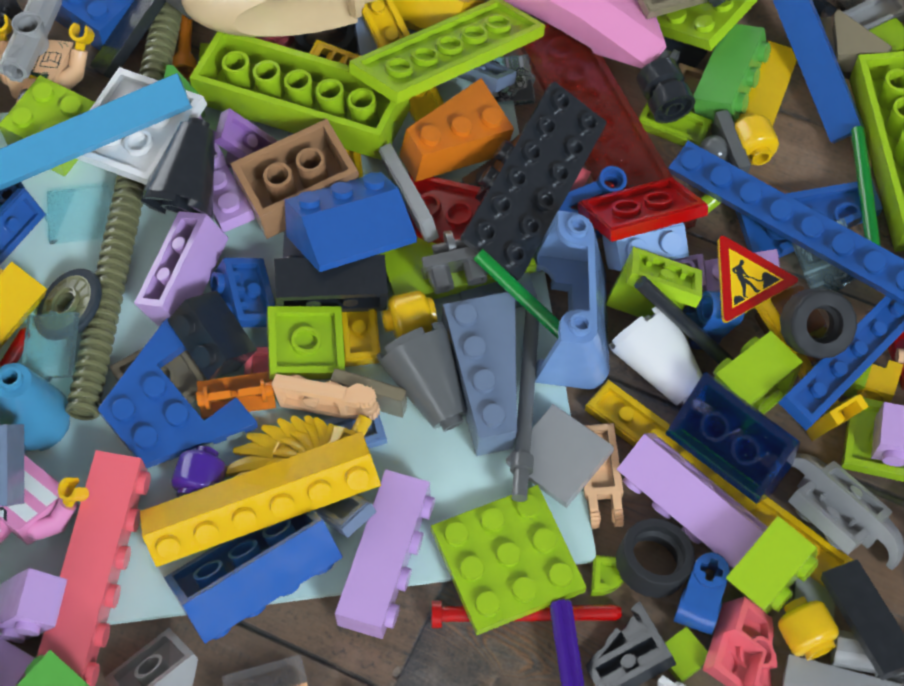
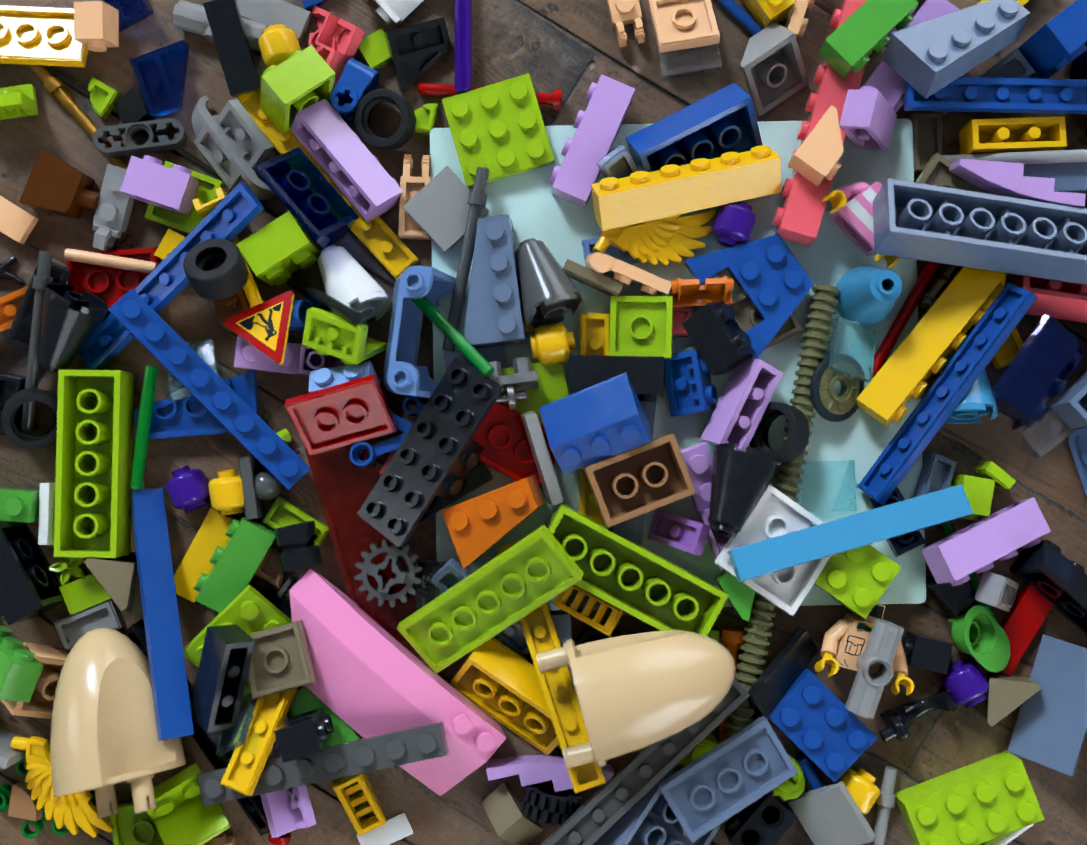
camera: 170 degrees left, 25 degrees up
(91, 548) = (820, 150): none -> light nougat slope
(117, 248) = (797, 435): none -> black tyre
(579, 71) = (402, 575): none -> dark grey gear
(800, 140) = (188, 489): none -> dark purple head

